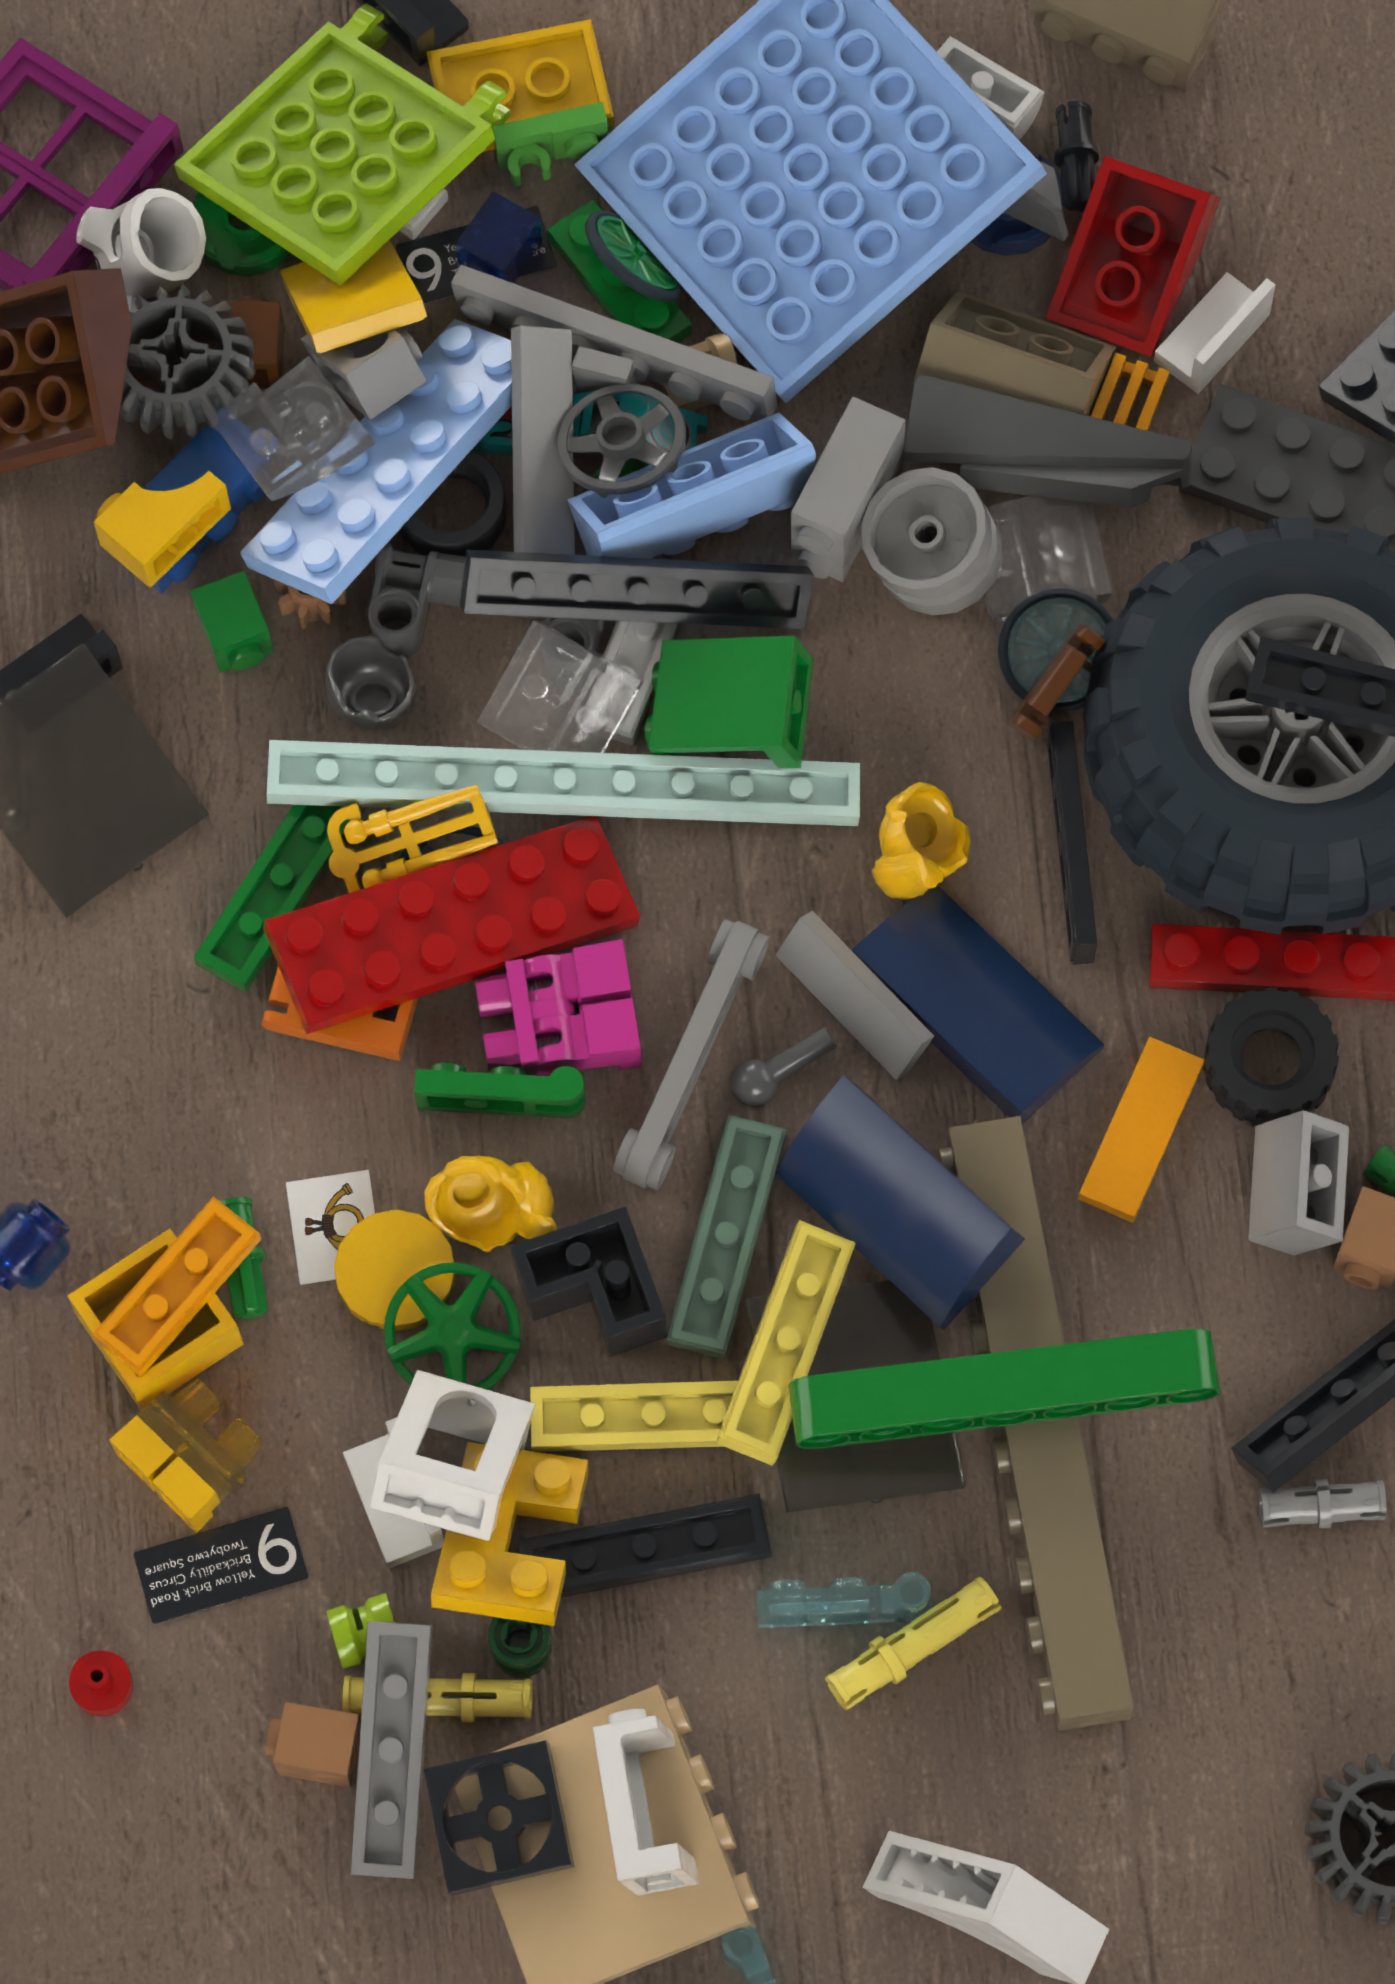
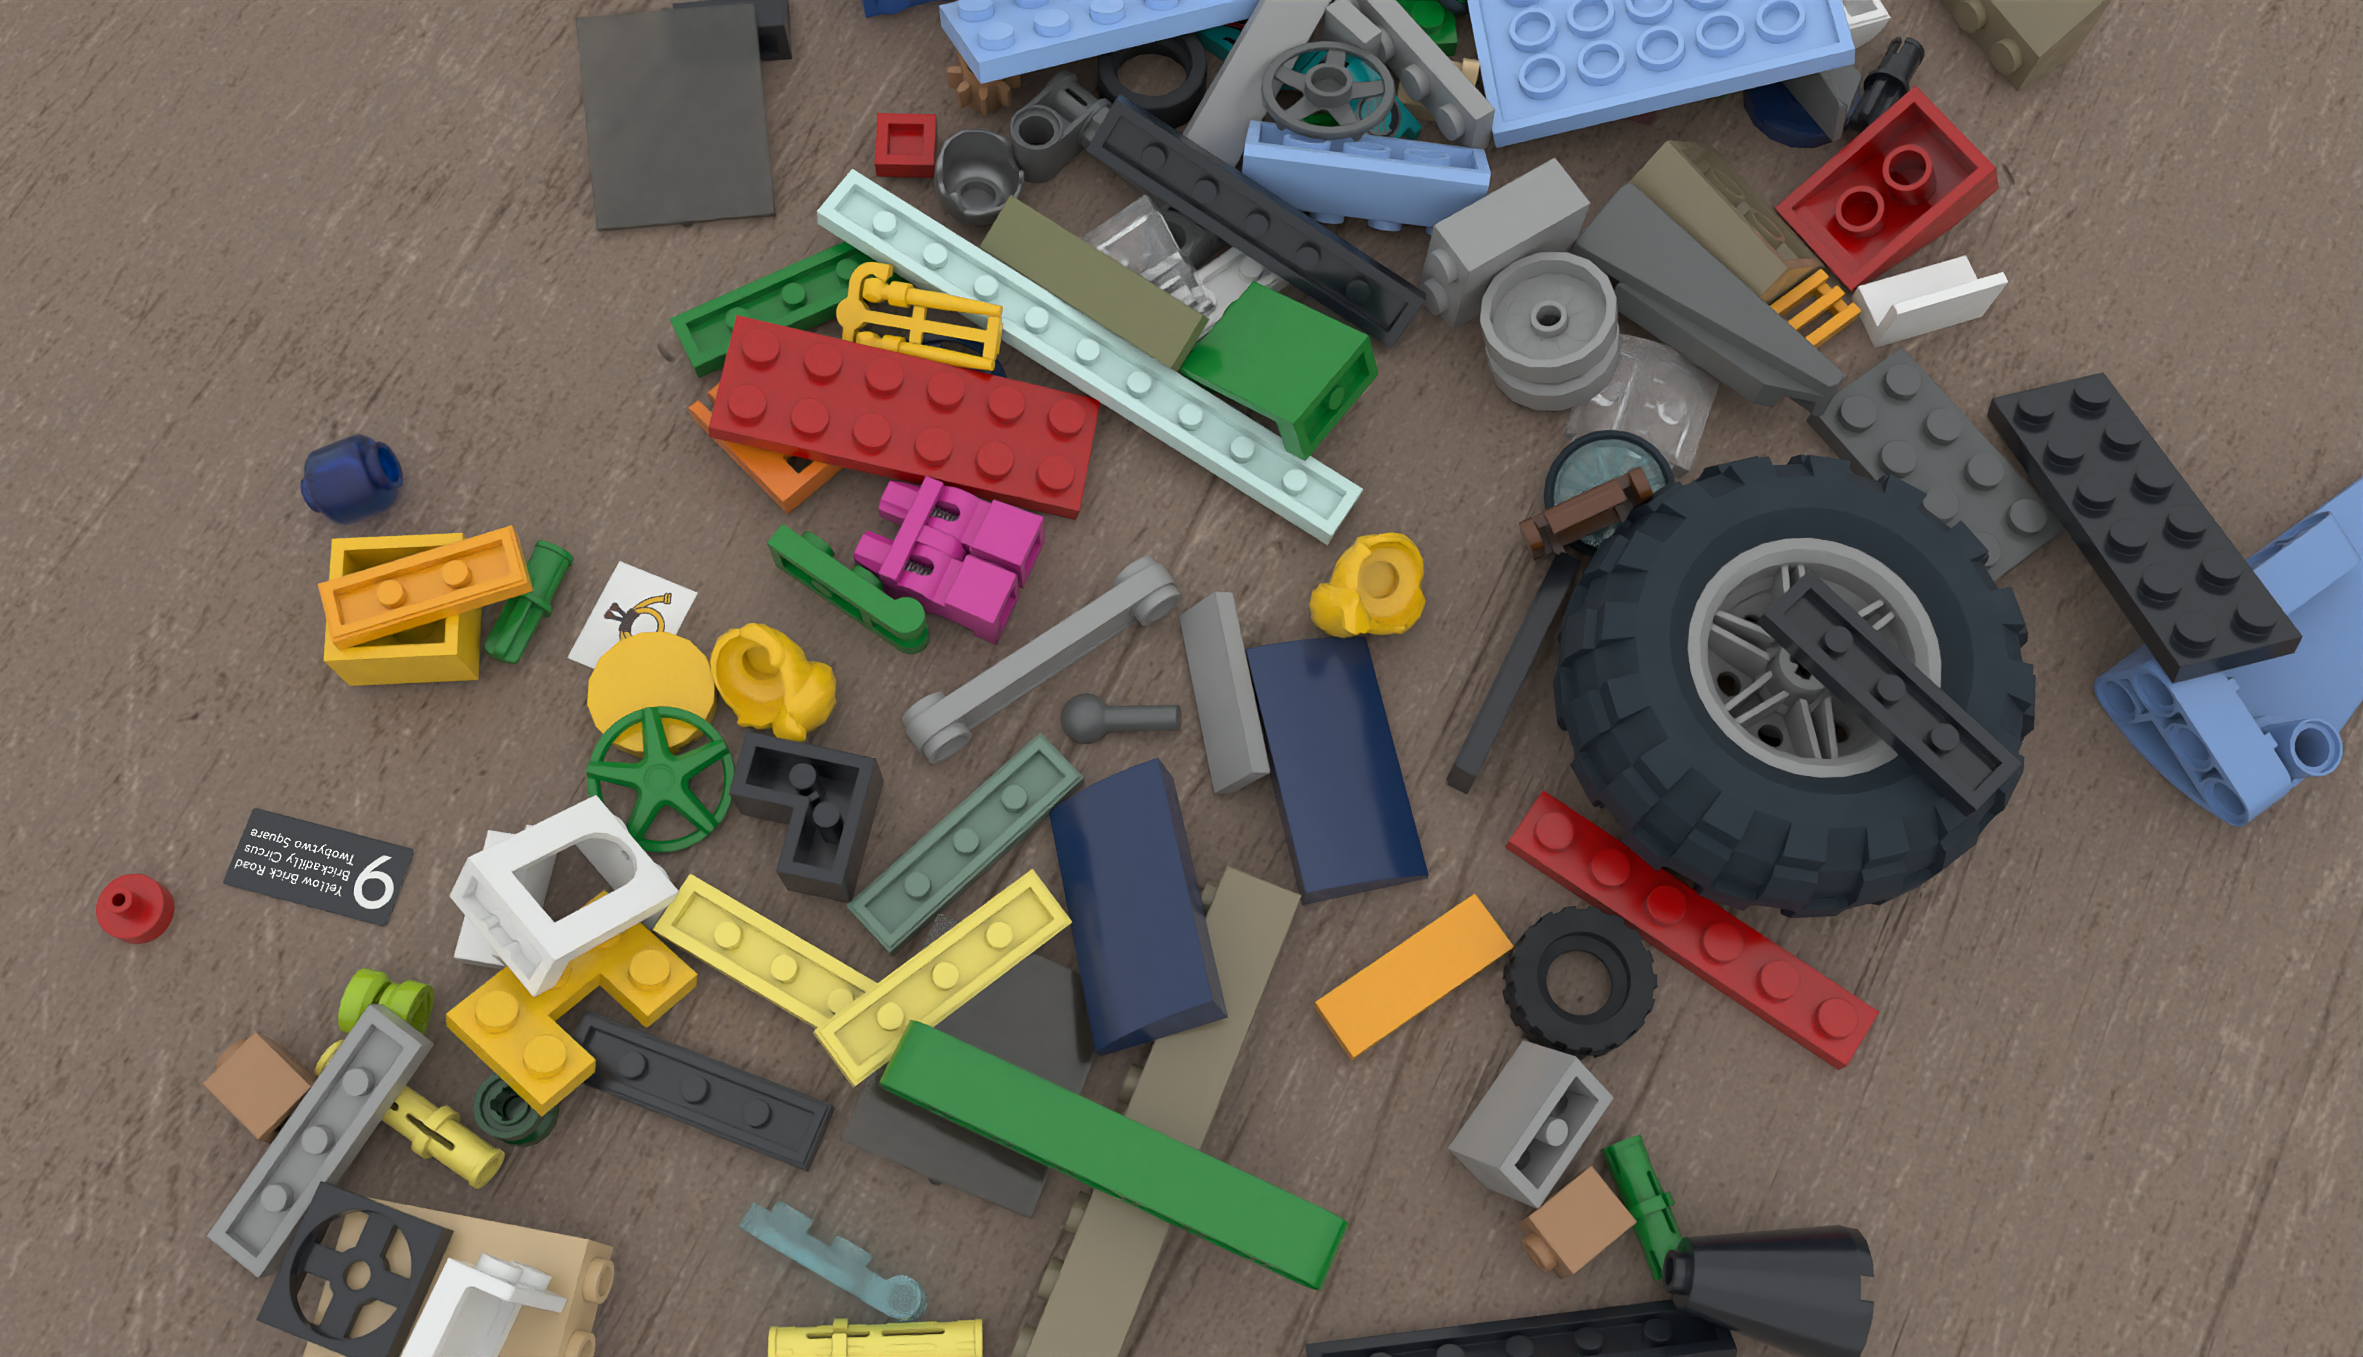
camera: 25 degrees right, 0 degrees up
(181, 1458) = (345, 746): hips -> none
(232, 622) = (900, 65): green brick -> none
(284, 689) = (906, 145): none -> red plate
(534, 719) = (1094, 283): none -> olive tile

